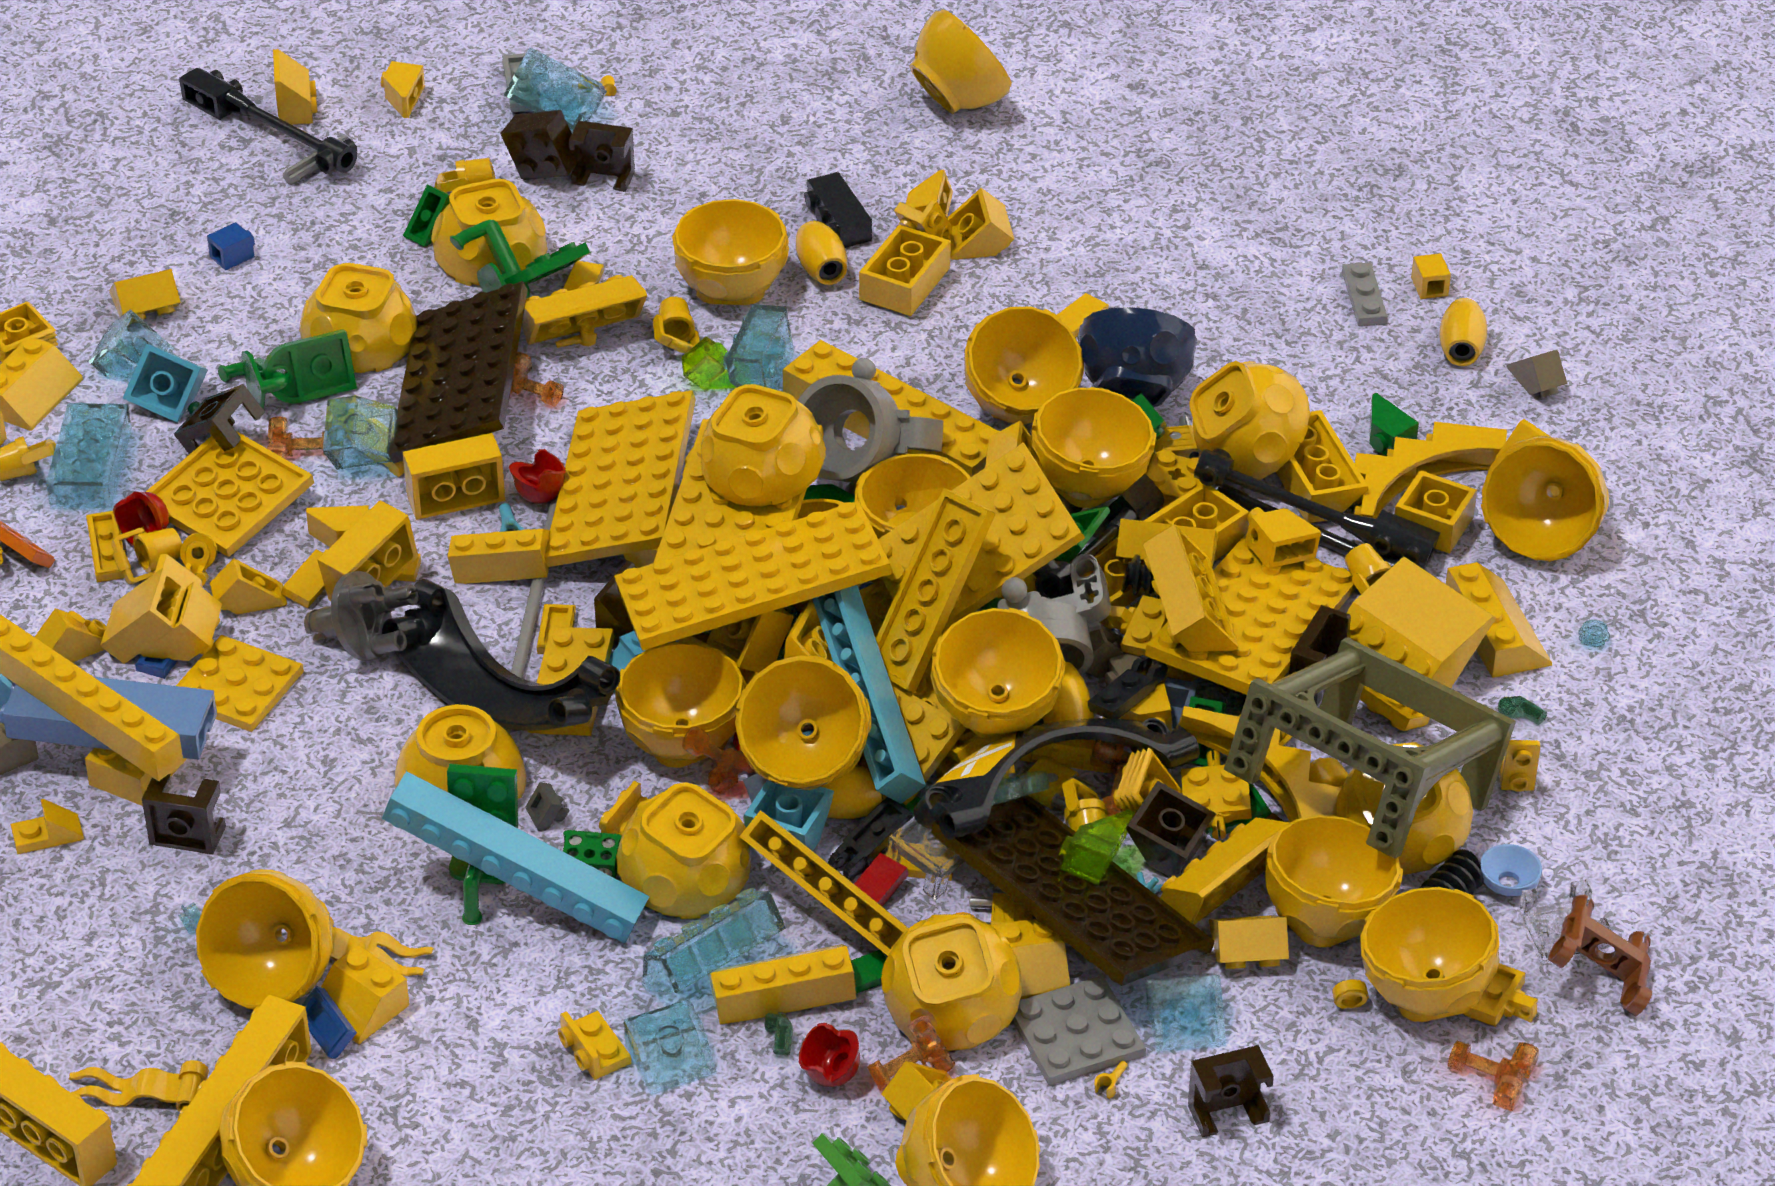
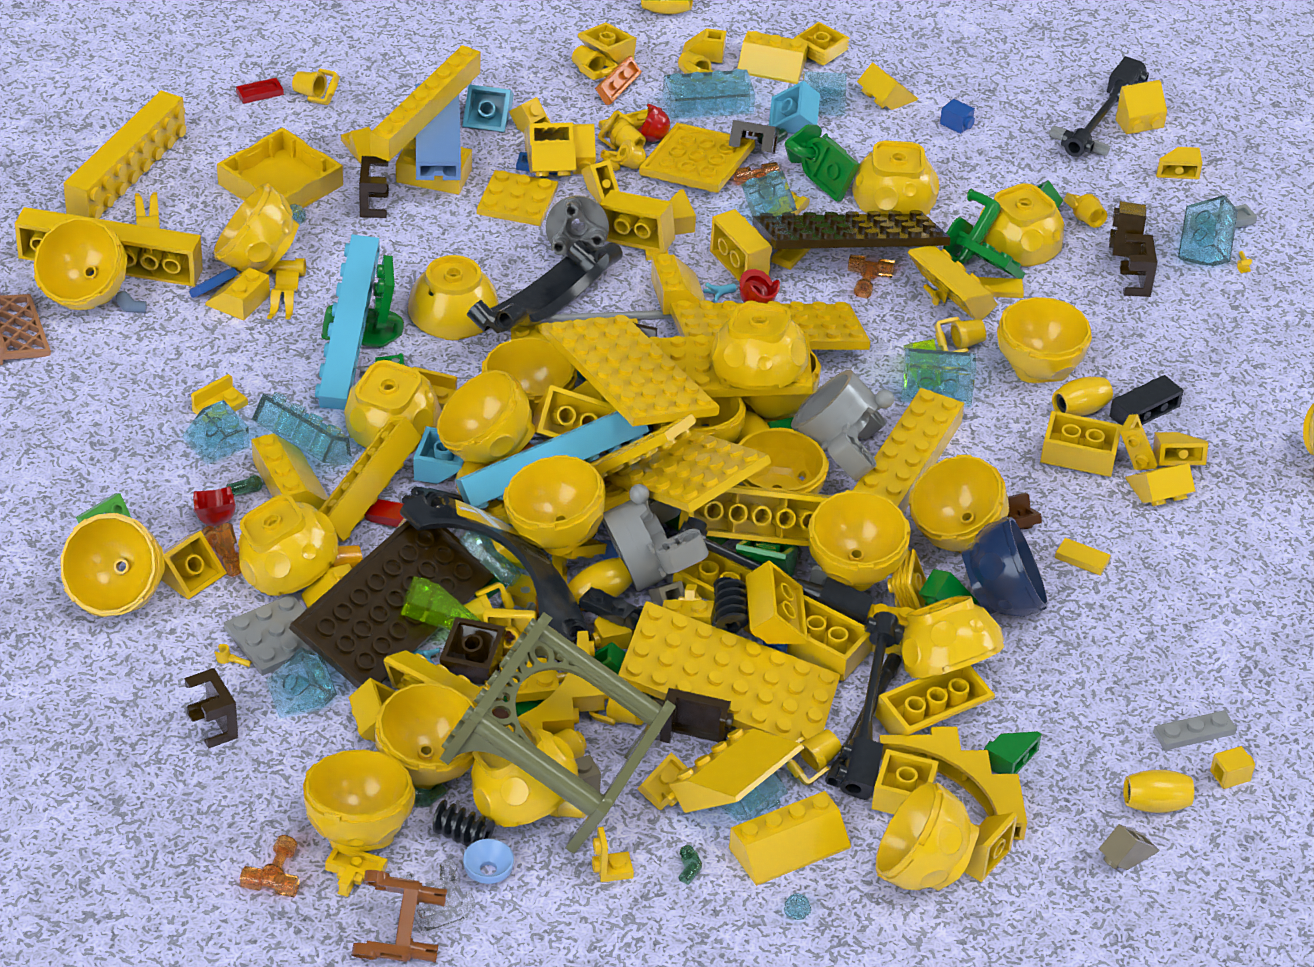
camera: 75 degrees right, 0 degrees up
(97, 920) = (286, 165): none -> yellow tile
(545, 806) = (431, 346): dark grey tile -> none
(1188, 593) = (696, 610): yellow slope -> none
(1281, 537) = (823, 681): yellow torso -> none

